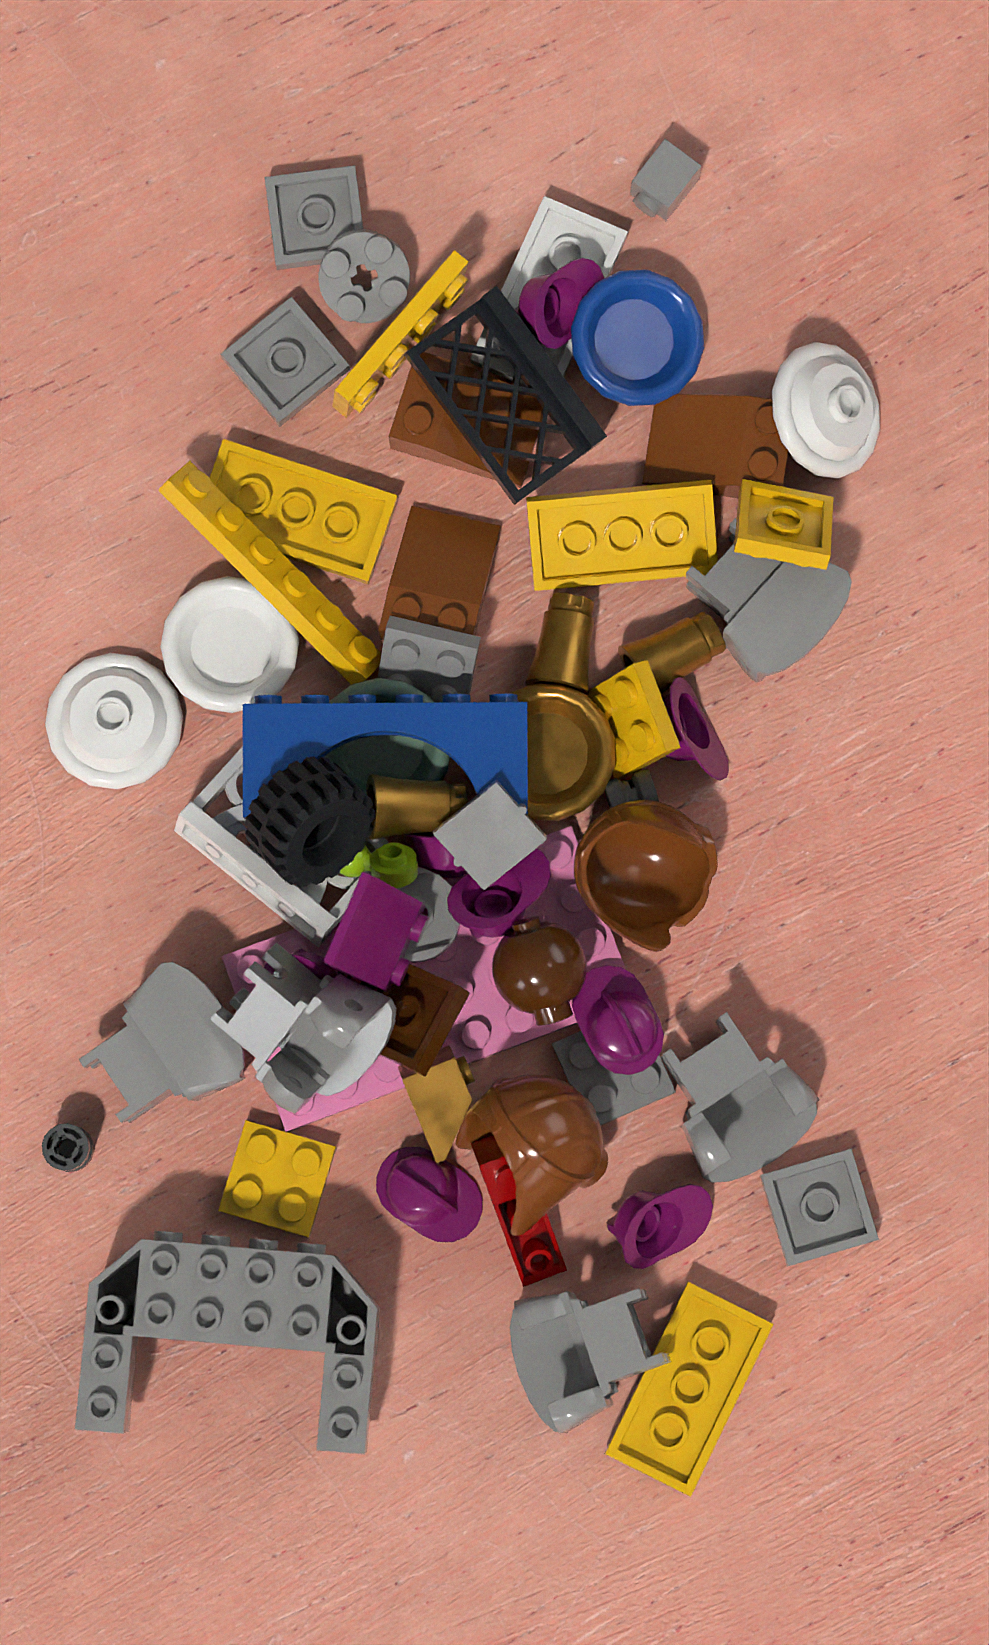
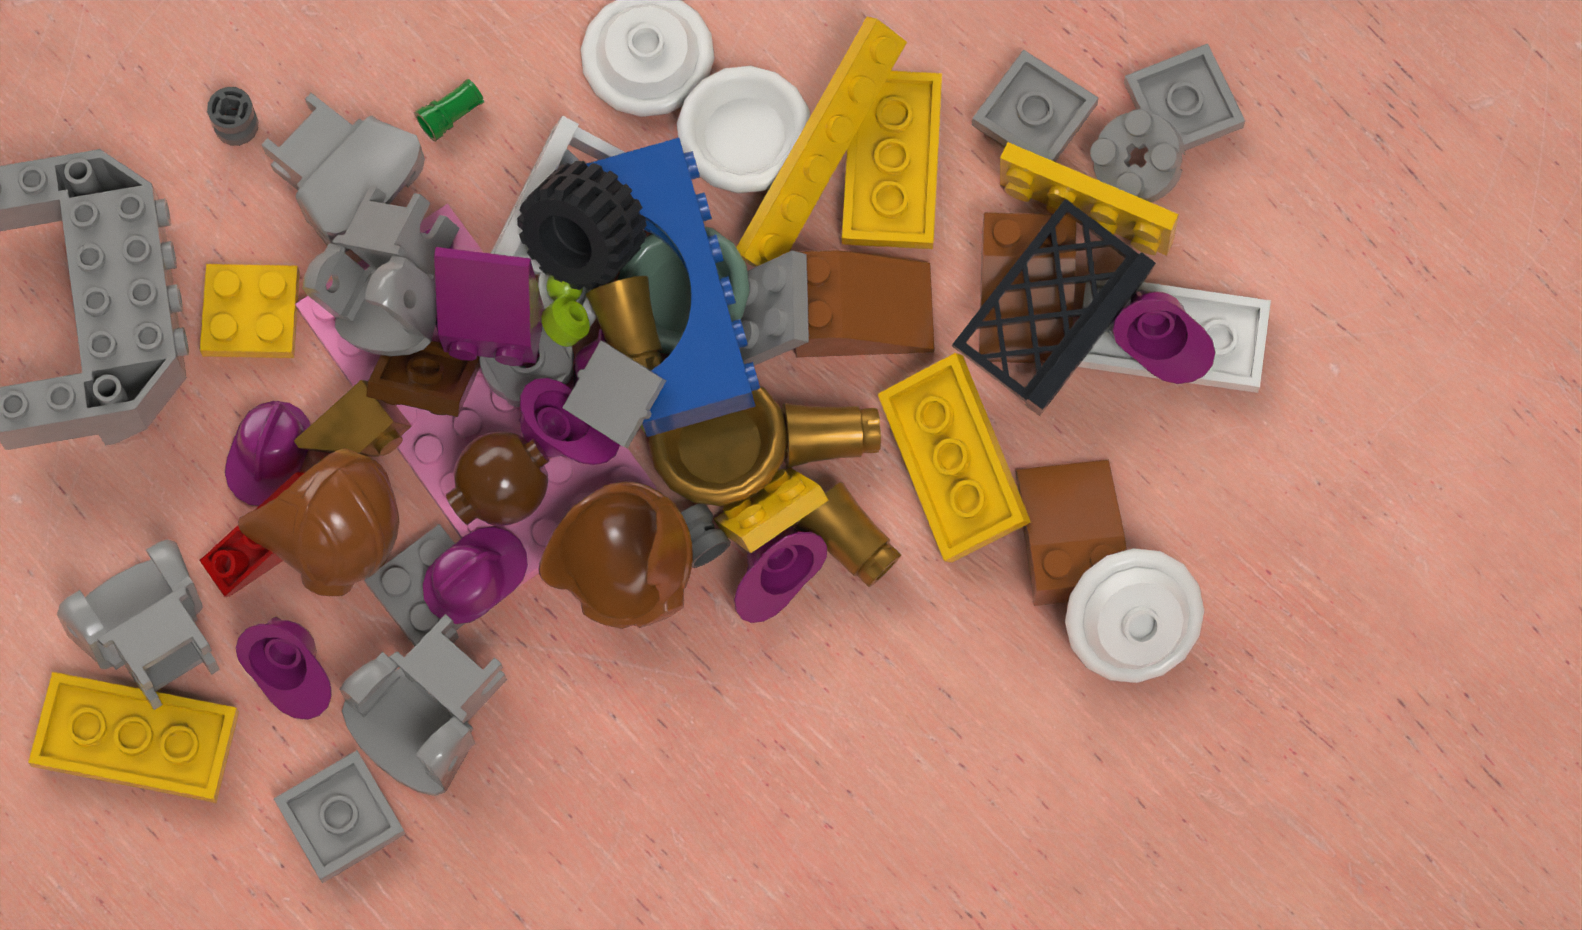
camera: 75 degrees right, 10 degrees down
(125, 942) = (441, 114): none -> green pin
(637, 337) = (1154, 420): blue piece -> none
(664, 181) = (1321, 409): light grey brick -> none
(770, 607) = (926, 608): light grey piece -> none
(784, 524) = (999, 593): yellow plate -> none

